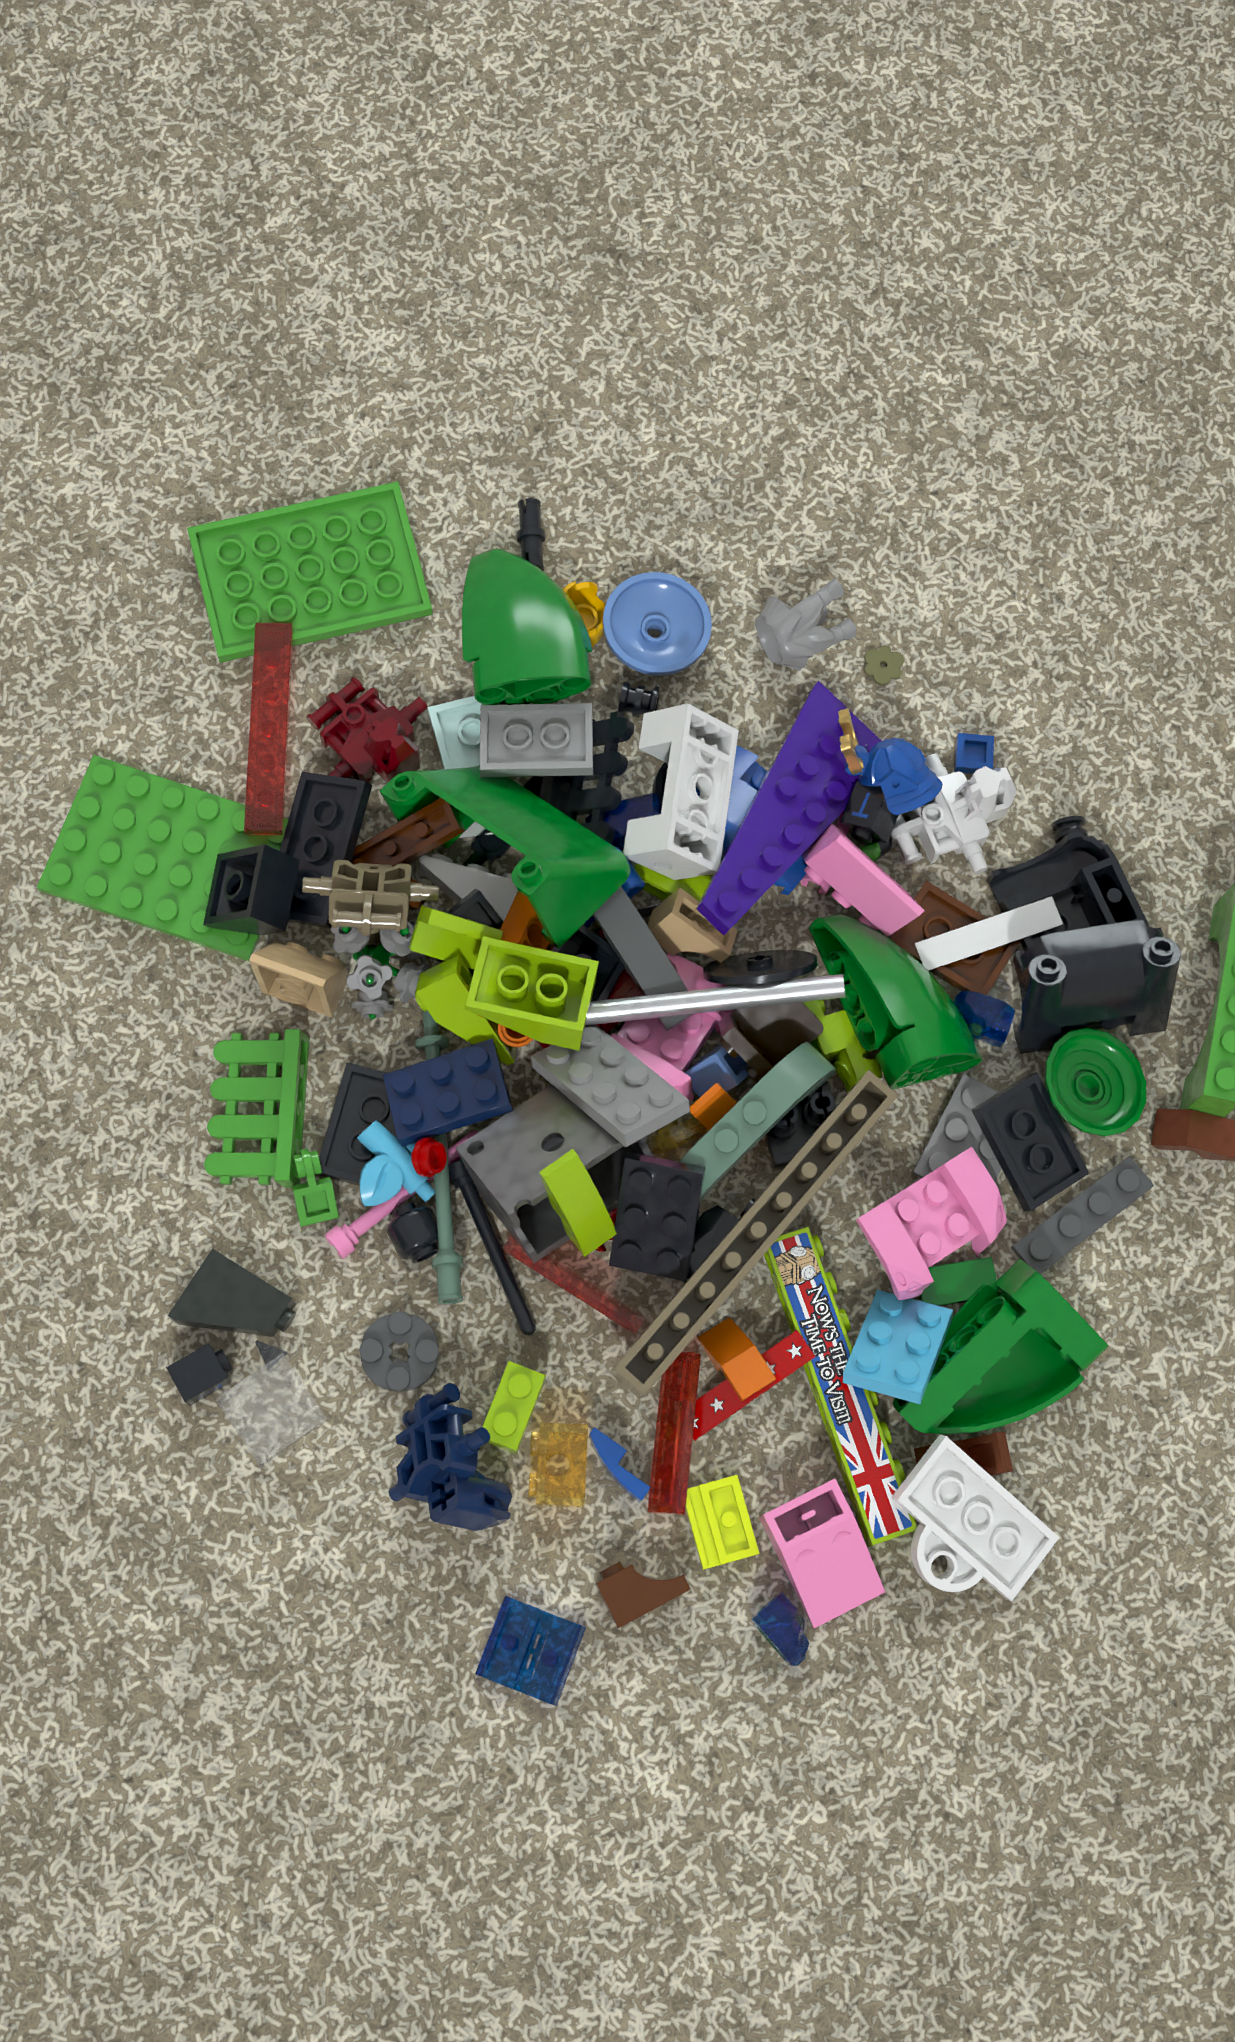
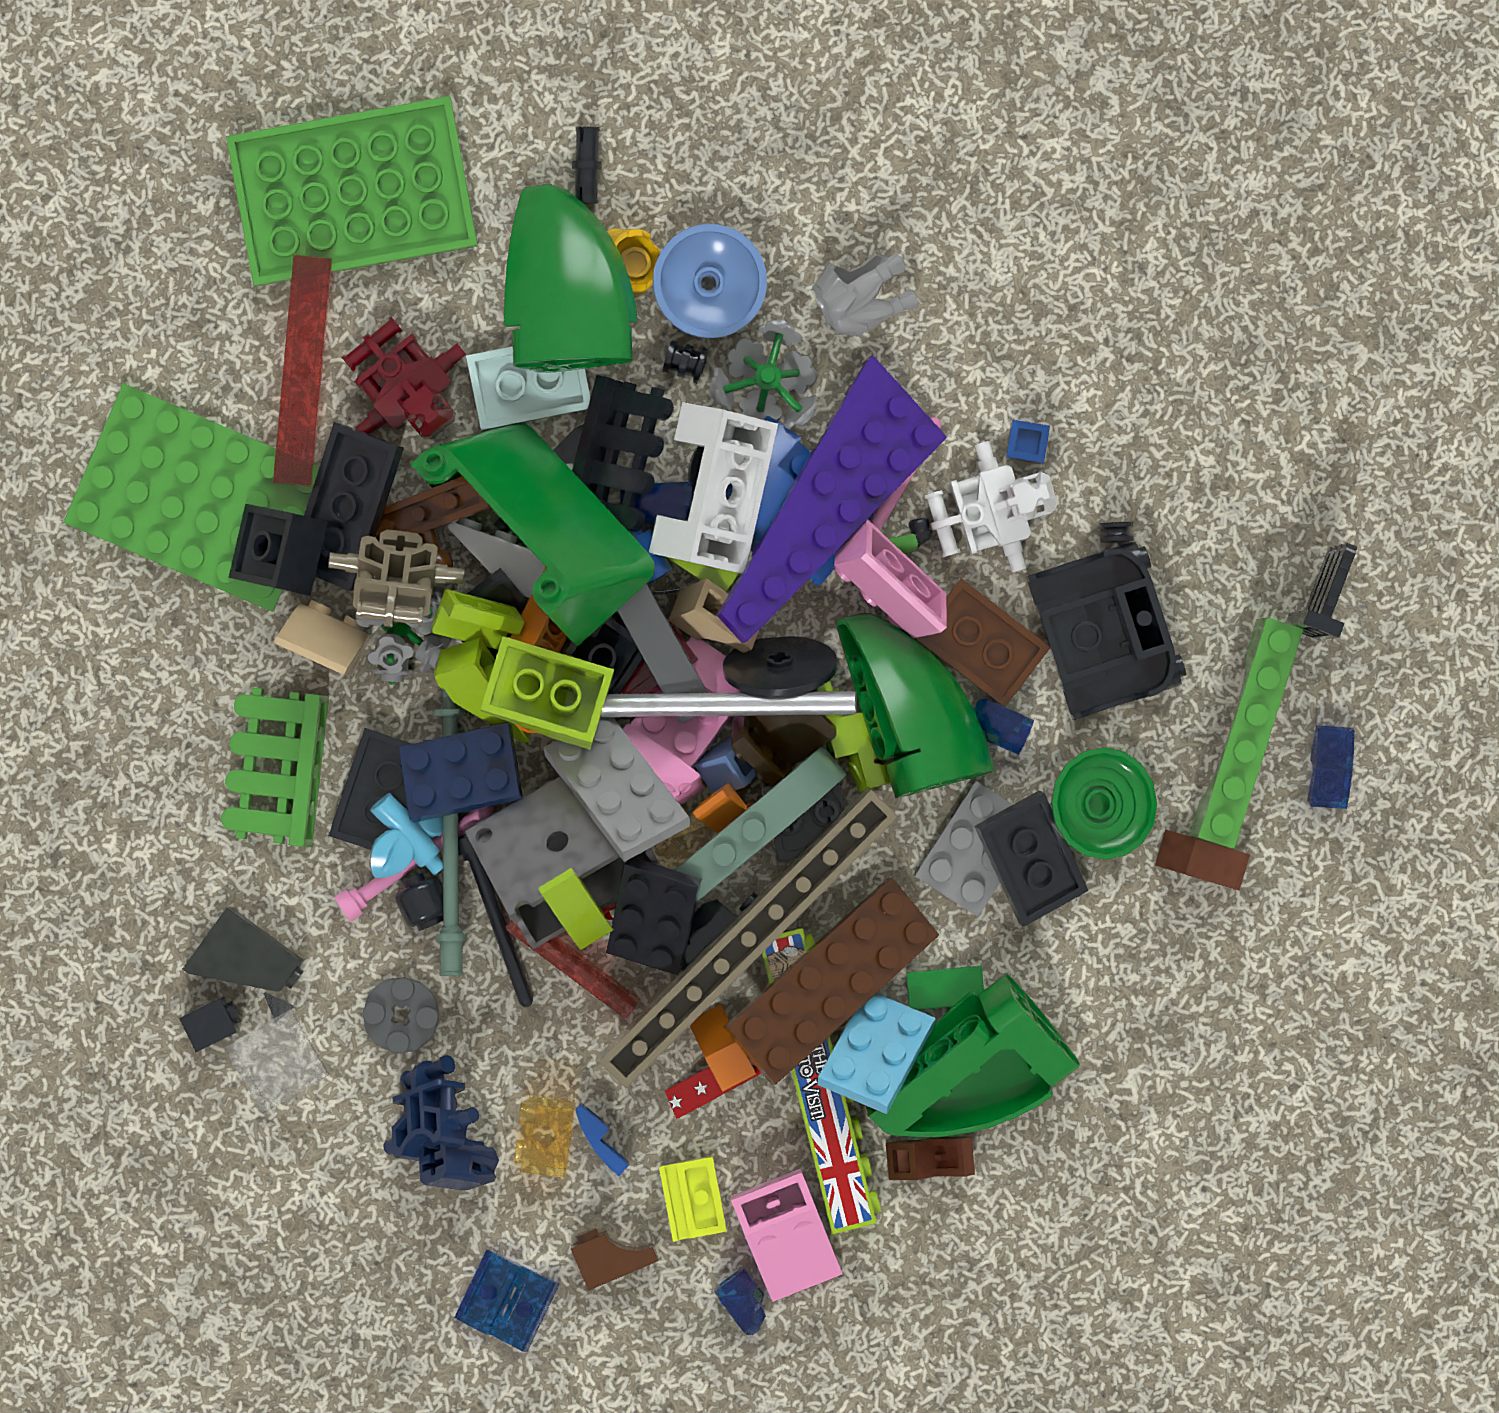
camera: 10 degrees right, 15 degrees up
(314, 1198) = (327, 861): bright green plate -> none
(428, 1157) = (438, 836): red plate -> none
(513, 1406) = (504, 1078): lime piece -> none
(536, 740) = (573, 410): light grey plate -> none
(674, 1435) = (656, 1118): clear red tile -> none
(743, 703) = (790, 375): none -> light grey plant
(823, 1295) = (831, 981): none -> reddish brown plate
(868, 815) = (910, 508): black brick -> none
(884, 655) = (956, 330): olive plant -> none
(893, 766) = (933, 467): blue helmet -> none
(933, 1221) = (924, 932): bright pink piece -> none
(970, 1523) = (928, 1221): white plate -> none
(988, 933) = (1017, 641): white sticker -> none
(1083, 1216) = (1077, 931): dark grey plate -> none
(1095, 982) = (1111, 705): black piece -> none

